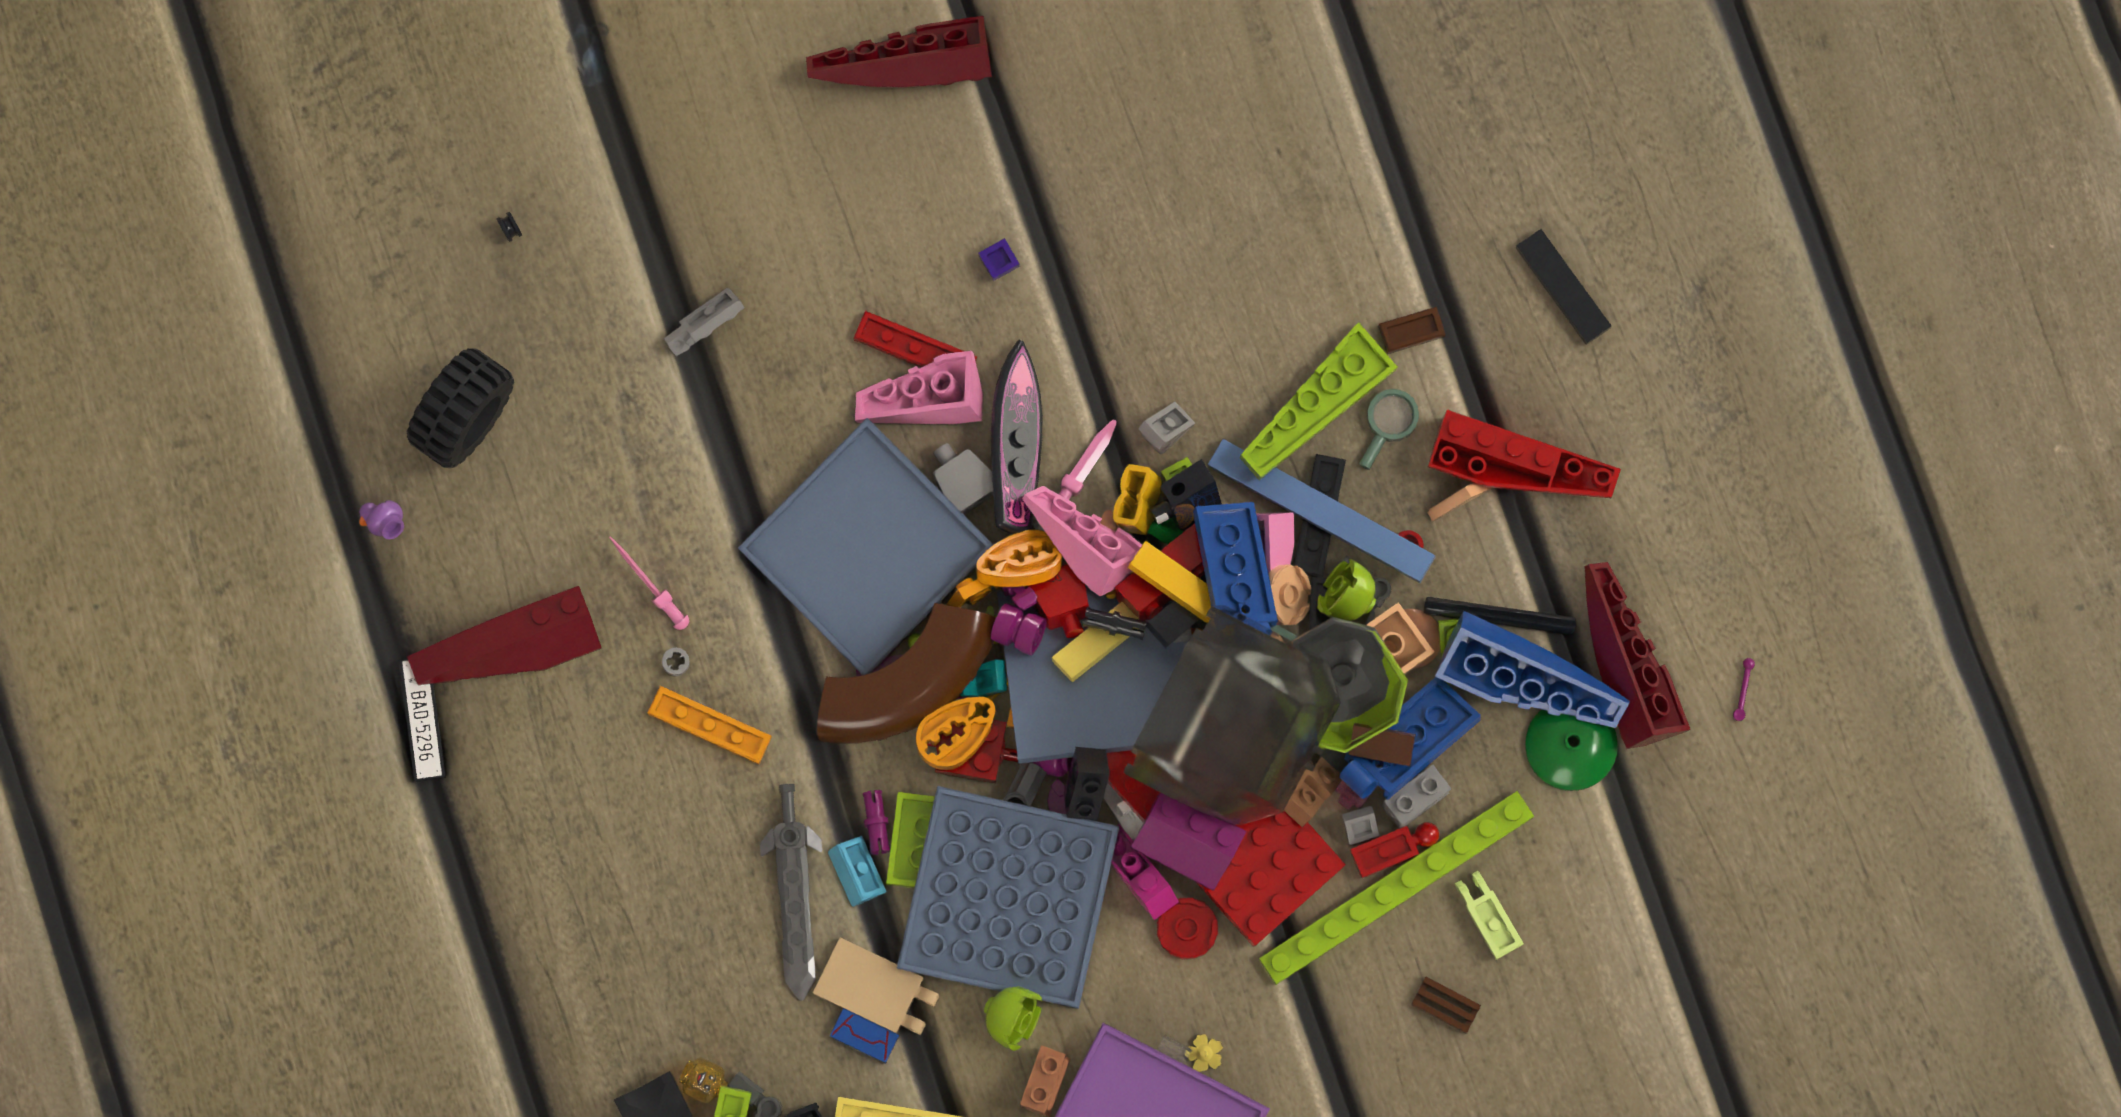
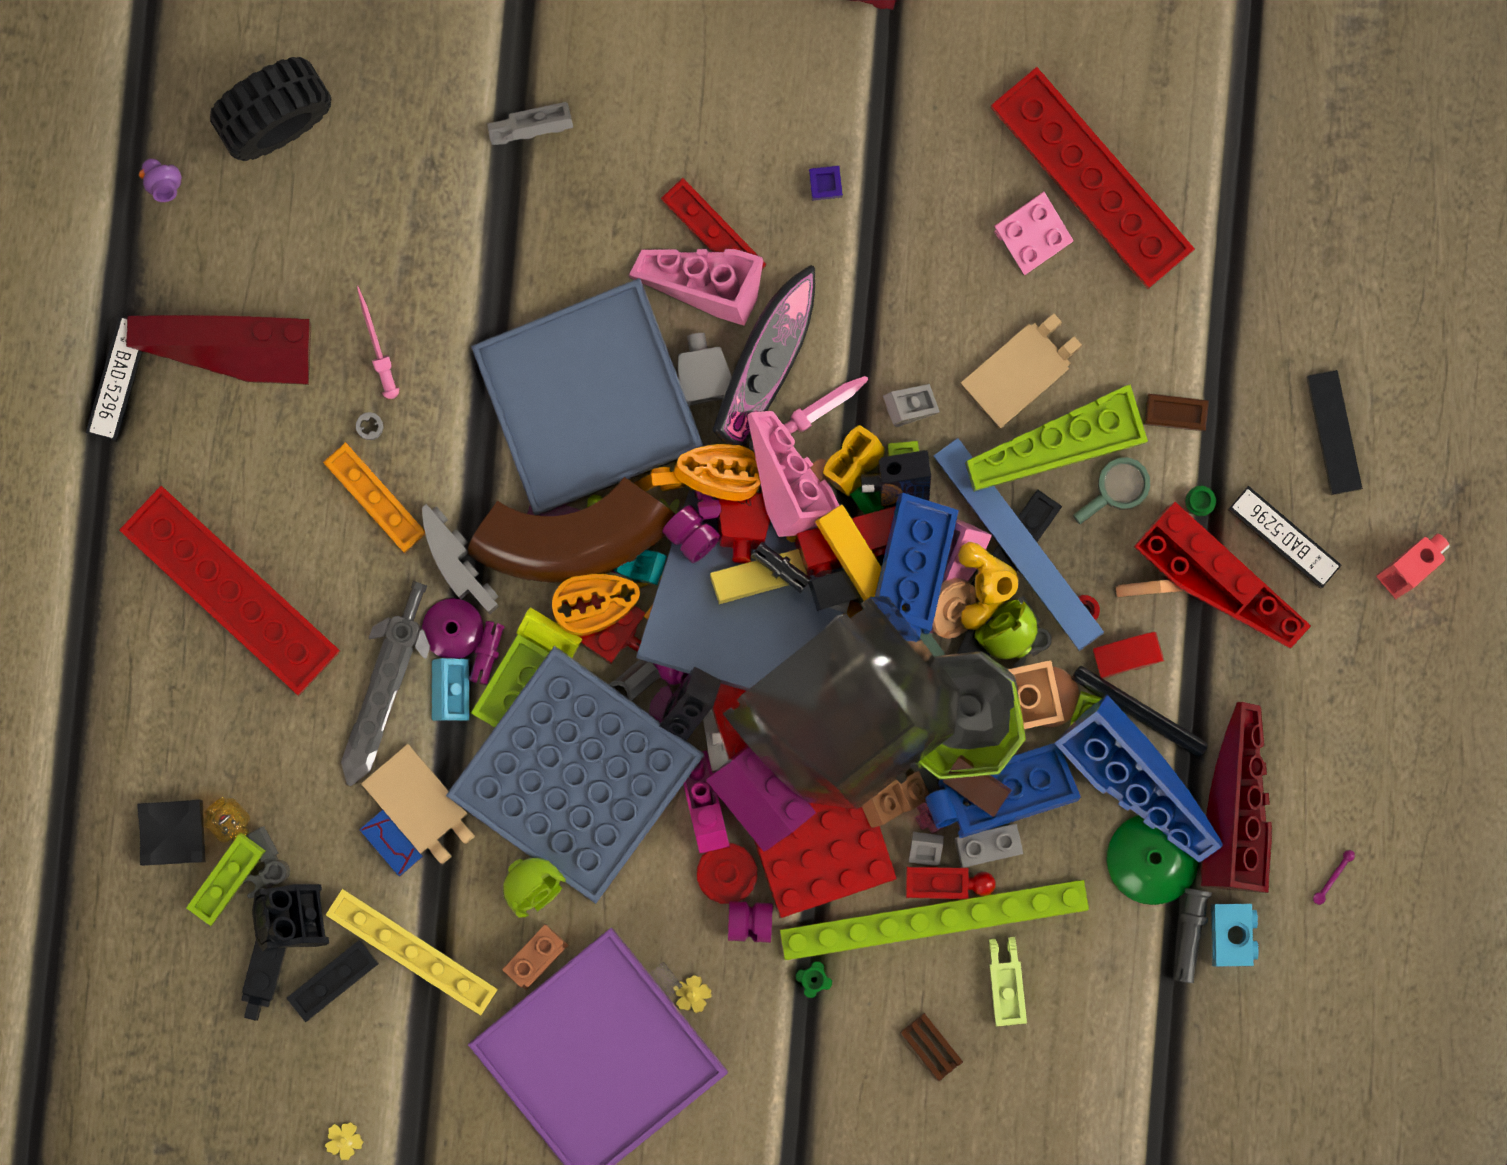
camera: 20 degrees right, 5 degrees up
(612, 868) = (230, 590): none -> red plate
(799, 744) = (447, 552): none -> light grey slope
(843, 827) = (464, 639): none -> magenta dish
(924, 779) = (547, 633): none -> neon yellow tile
(1209, 223) = (1033, 233): none -> bright pink hinge
(1228, 962) = (750, 921): none -> magenta wheel
(1240, 151) = (1092, 178): none -> red plate
(1252, 354) = (1020, 371): none -> tan tile
(1309, 981) = (811, 988): none -> green plate
(1315, 555) = (993, 584): none -> yellow head
(1466, 568) = (1128, 654): none -> red slope
(1469, 400) = (1200, 501): none -> green plate
(1560, 400) = (1284, 537): none -> white tile
(1633, 782) = (1193, 918): none -> dark grey pin
(1676, 799) = (1222, 919): none -> medium azure brick
(1689, 374) = (1414, 565): none -> coral torso

